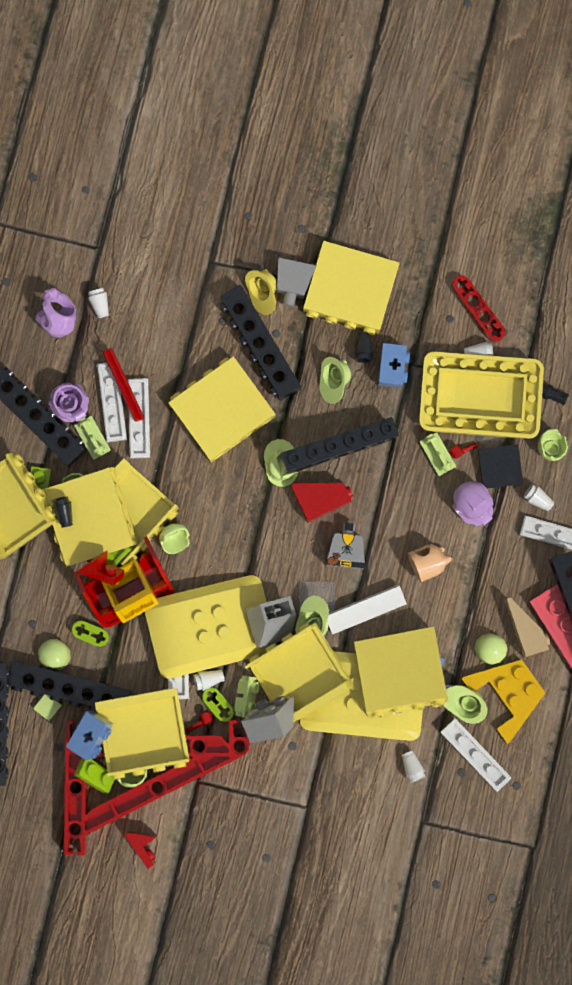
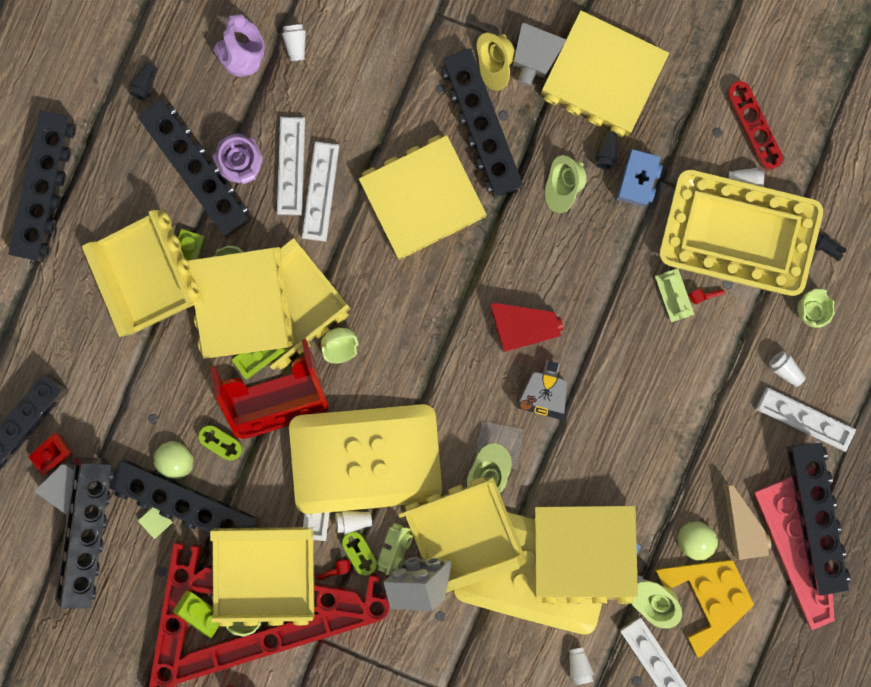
camera: 10 degrees right, 5 degrees up
(63, 511) = (209, 291): black cone -> none
(80, 740) = (187, 575): medium blue brick -> none
(92, 437) = (260, 205): yellowish green hinge -> none
(100, 570) = (242, 371): red slope -> none
(123, 385) = (307, 148): red axle -> none
(136, 604) = (279, 420): yellow window -> none
(271, 621) = (440, 465): light grey slope -> none
(272, 466) = (483, 274): yellowish green piece -> none
(337, 446) = (555, 267): black brick -> none
(366, 609) = (556, 468): white tile -> none
(428, 561) = (641, 424): light nougat piece -> none
(473, 503) = (708, 363): lavender helmet -> none
(500, 466) = (748, 323): black tile -> none

